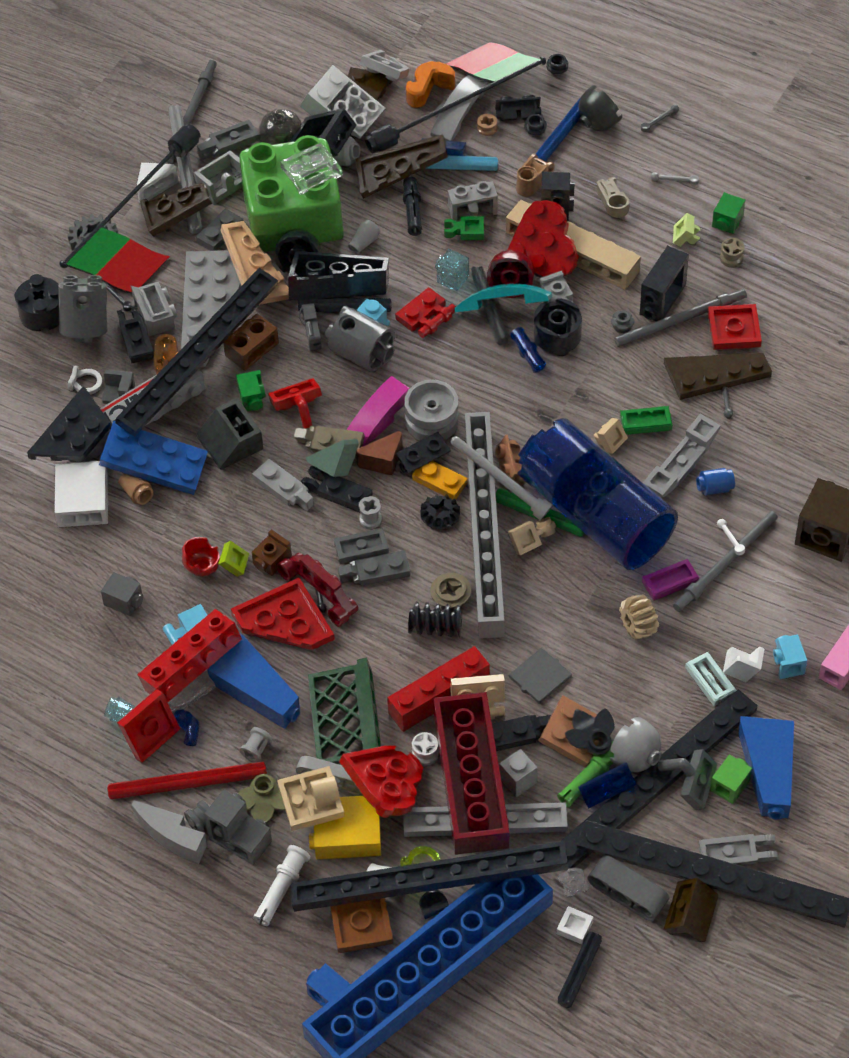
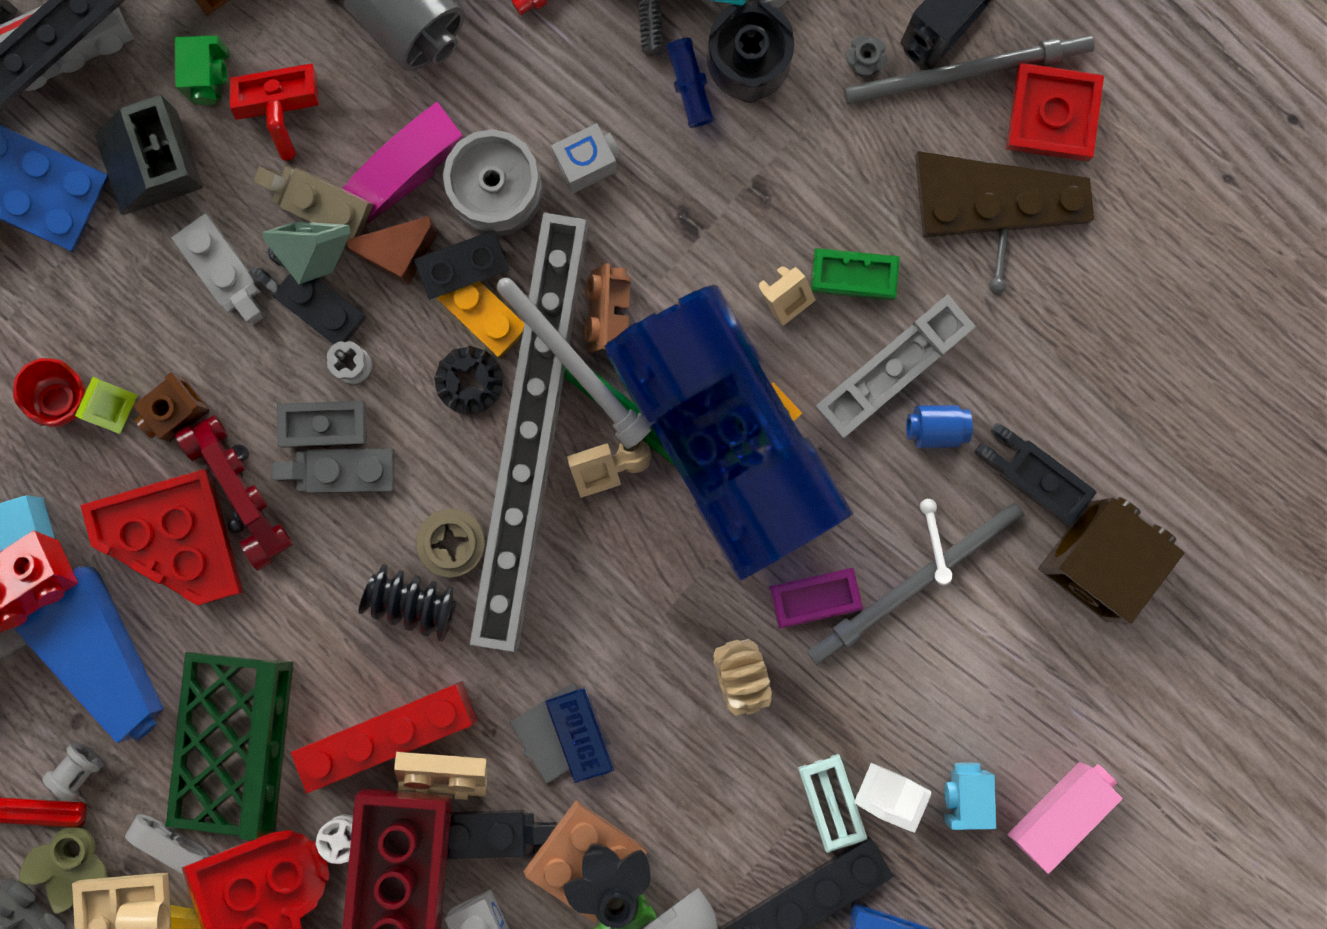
camera: 10 degrees right, 30 degrees up
(479, 393) = (586, 157): none -> light grey brick
(553, 667) = (580, 735): none -> slope
(775, 493) = (1039, 476): none -> black hinge

